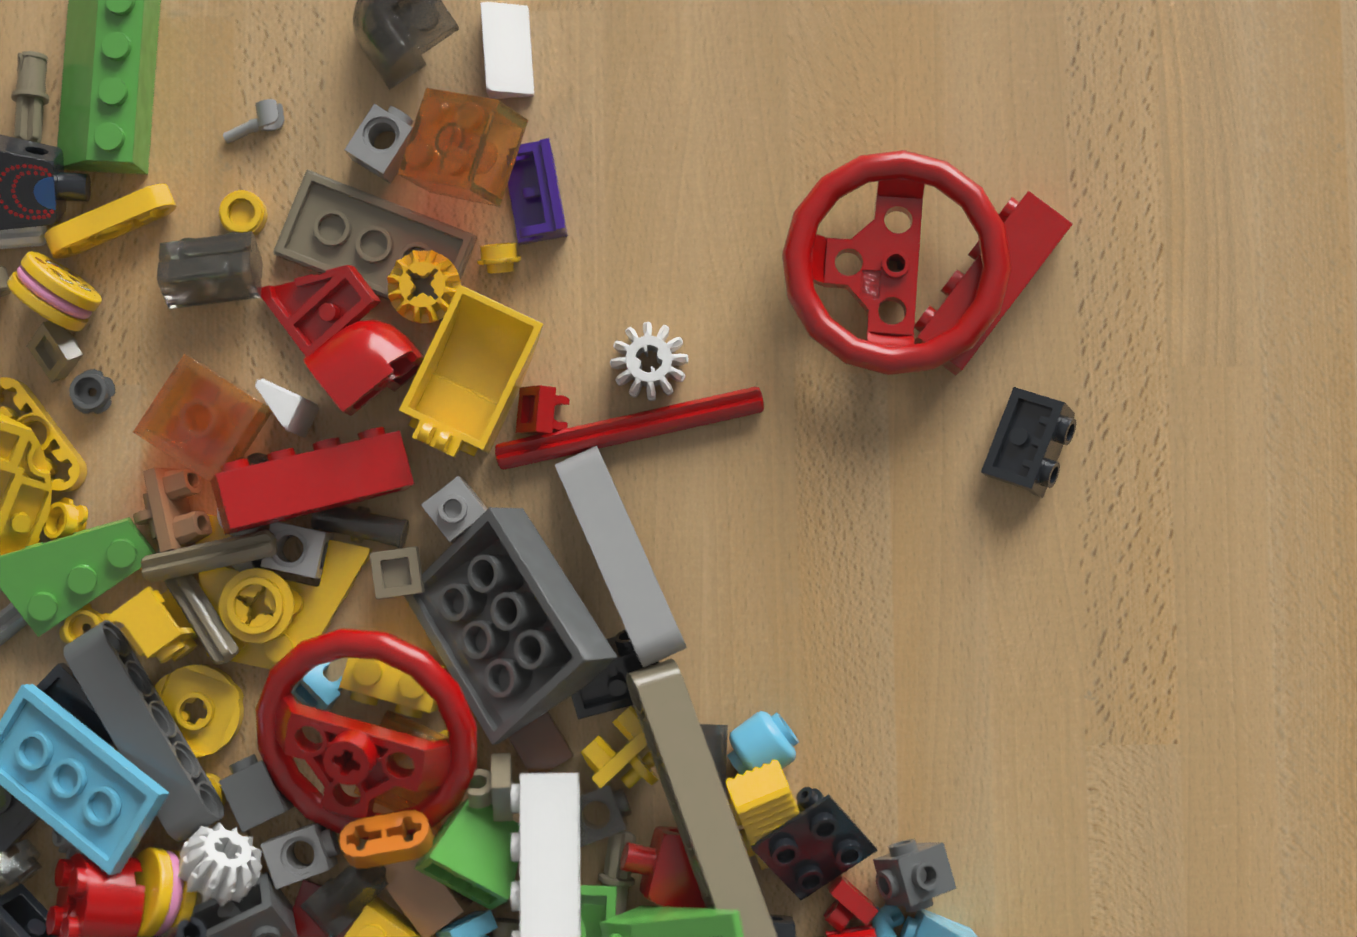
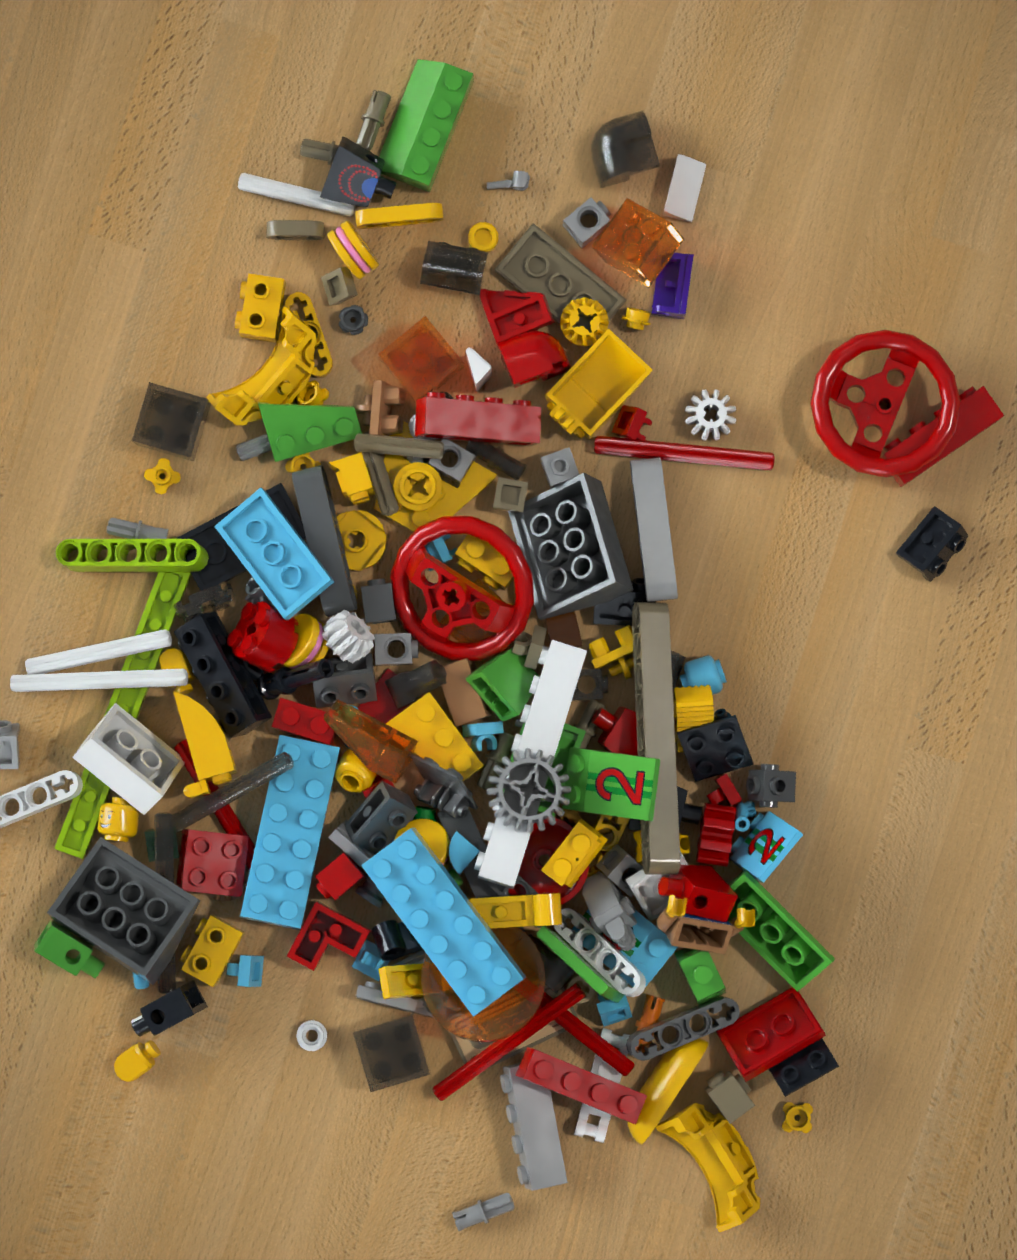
camera: 15 degrees right, 0 degrees up
(386, 839) = (455, 654): orange beam -> none

